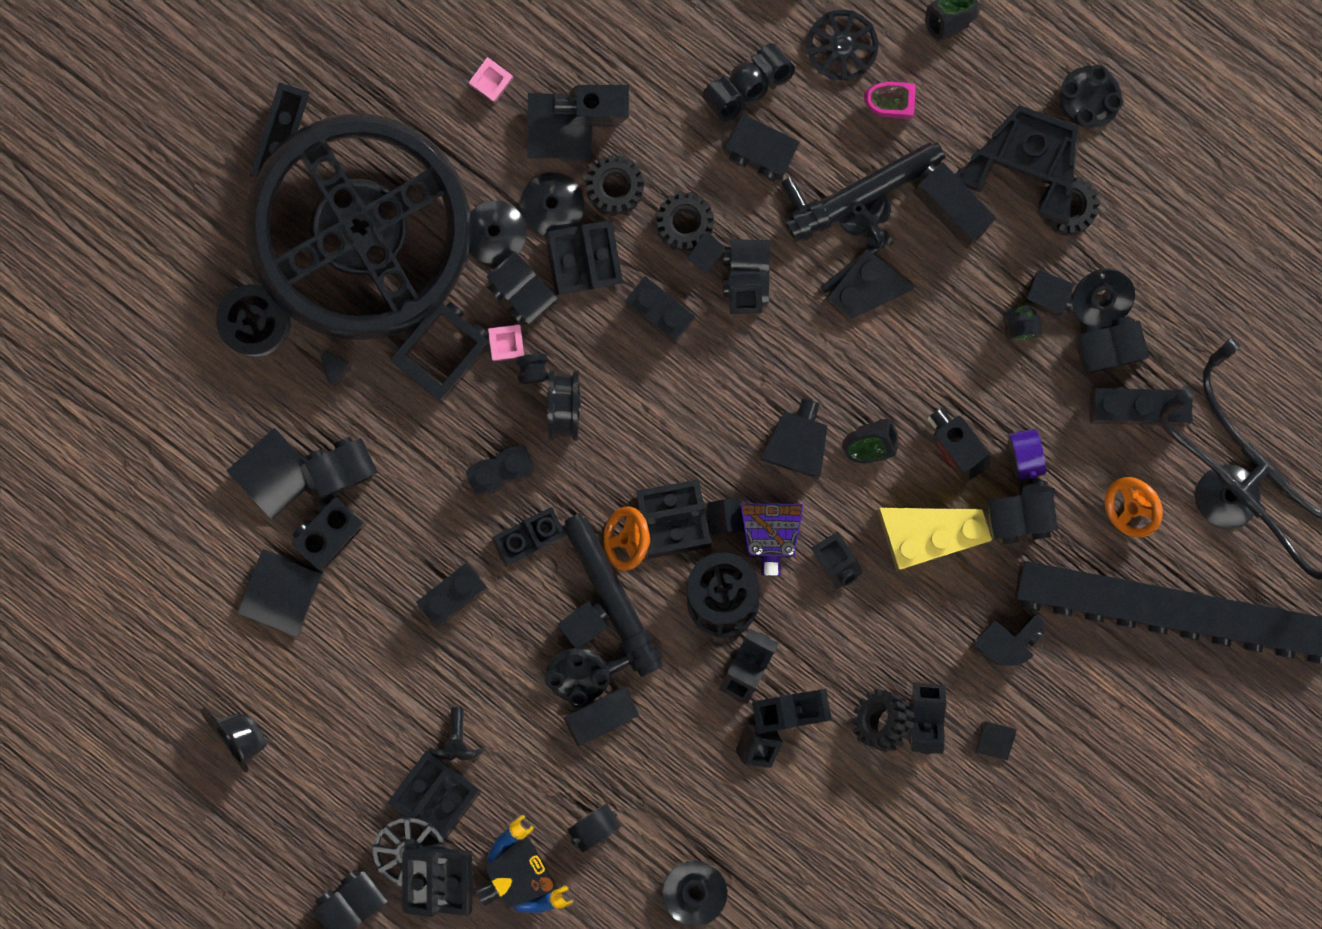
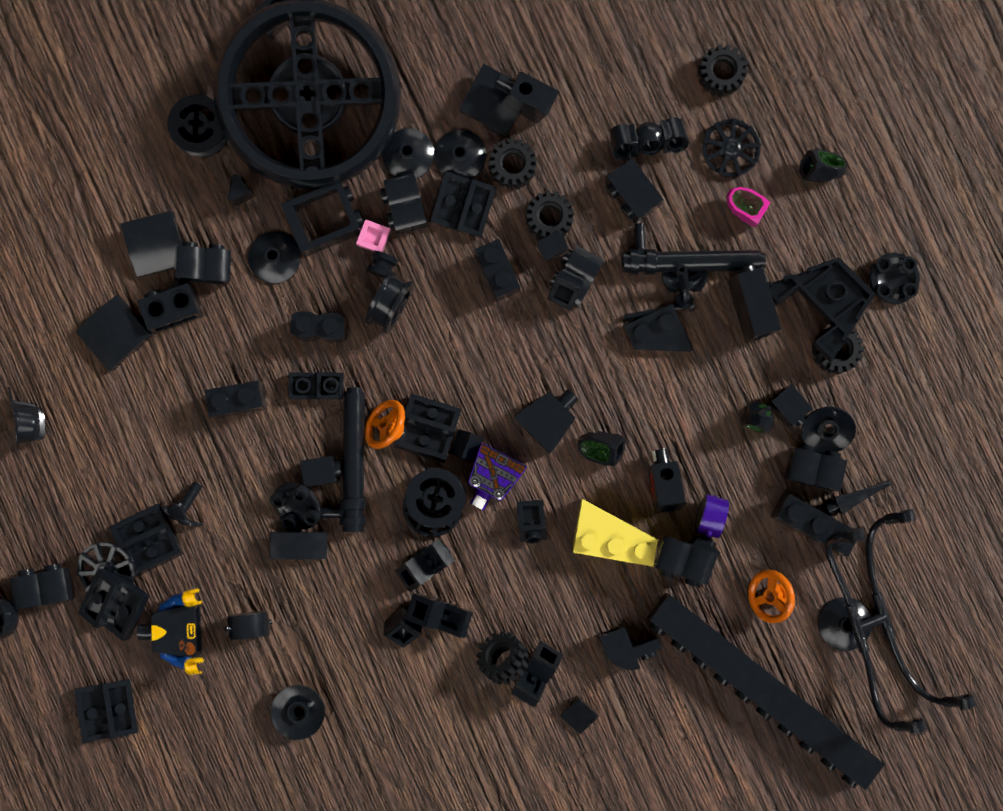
camera: 25 degrees right, 0 degrees up
(419, 434) = (283, 266): none -> black dish
(491, 80) = (462, 42): bright pink plate -> none
(1160, 367) = (845, 502): none -> black piece

